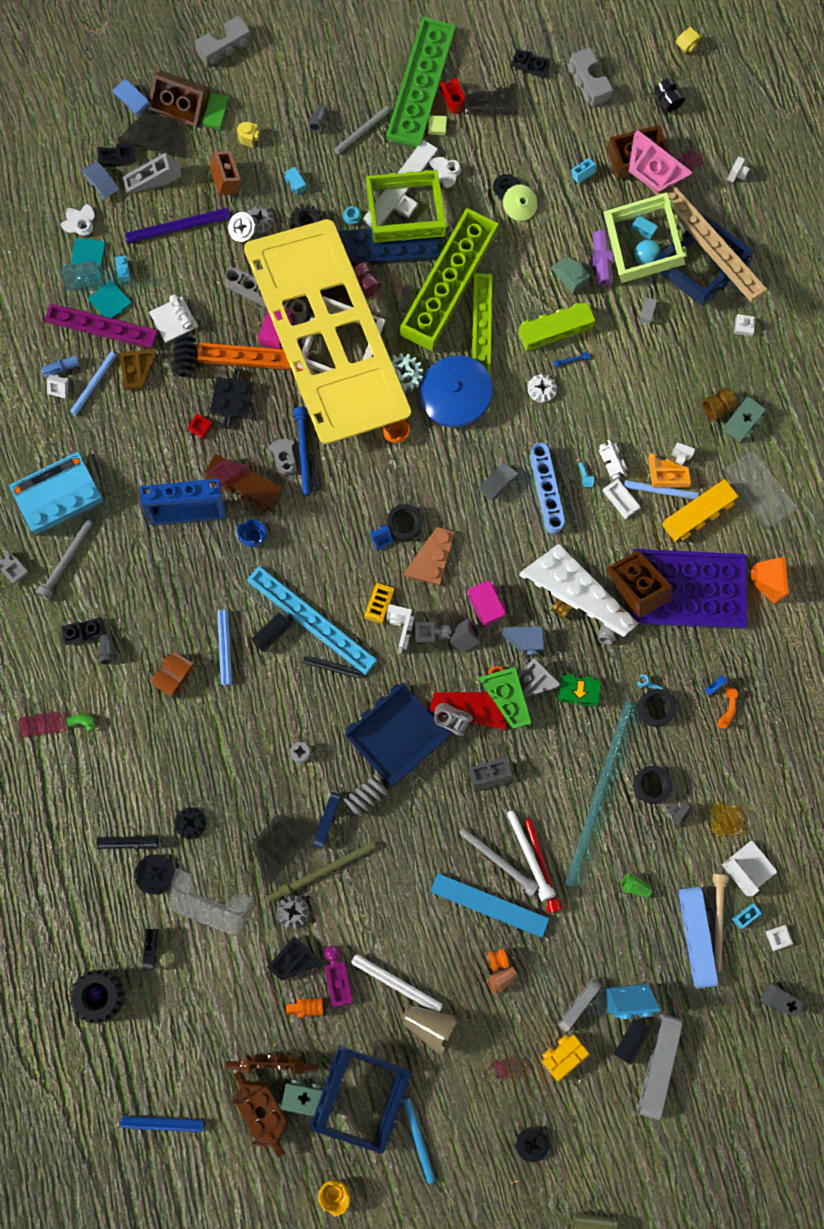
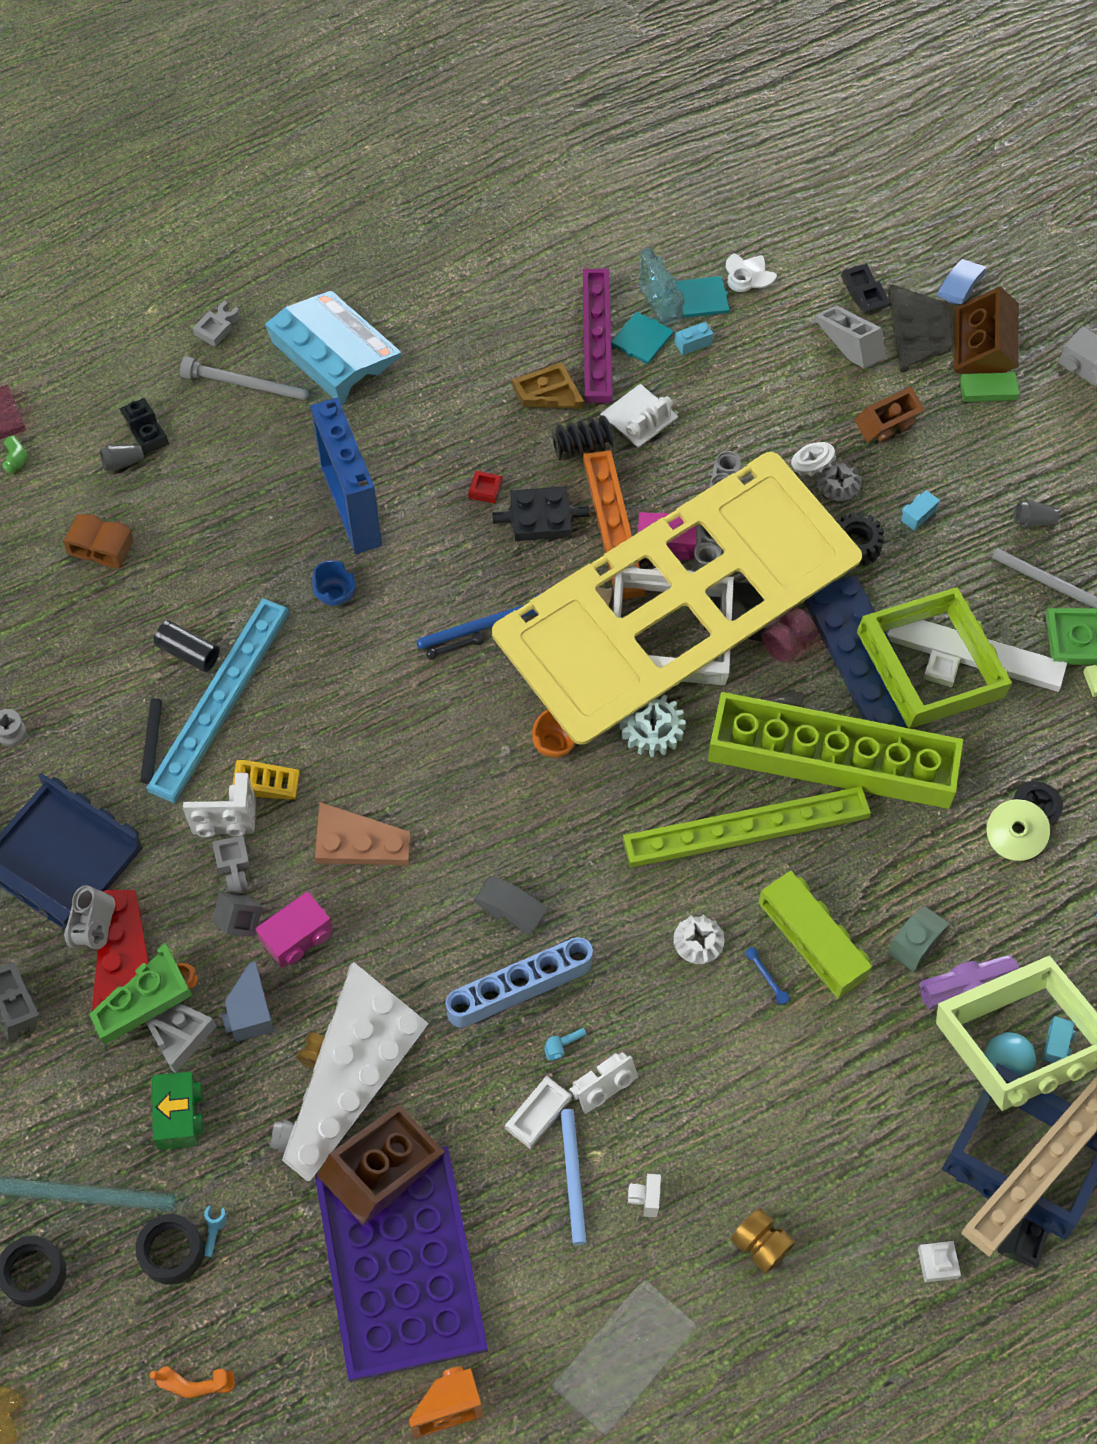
camera: 85 degrees right, 15 degrees down
(57, 386) = (492, 308): white tile -> none
(60, 366) = (523, 306): medium blue axle -> none
(93, 383) = (509, 348): light blue bar -> none
(100, 179) = (817, 279): sand blue slope -> none
(177, 225) = (788, 385): dark purple axle -> none
(224, 647) = (154, 595): light blue axle -> none
(227, 471) = (413, 523): clear pink tile -> none
(248, 133) = (969, 432): light yellow plate -> none
(249, 487) = (409, 557): reddish brown brick -> none
(283, 446) = (481, 591): light grey piece -> none
(352, 215) = (893, 595): medium azure plate -> none
(381, 537) = (371, 756): blue tile -> none
(405, 508) = (398, 764): black tyre -> none
(446, 176) = (1020, 706): white plate -> none
(456, 391) = (645, 806): blue dish -> none
(647, 311) = (900, 1080): light grey piece -> none
(668, 474) = (604, 1178): light orange wing -> none
(700, 510) = (549, 1249): yellow brick -> none
(715, 685) = (231, 1348): blue tile -> none
(748, 410) = (766, 1299): sand green brick -> none

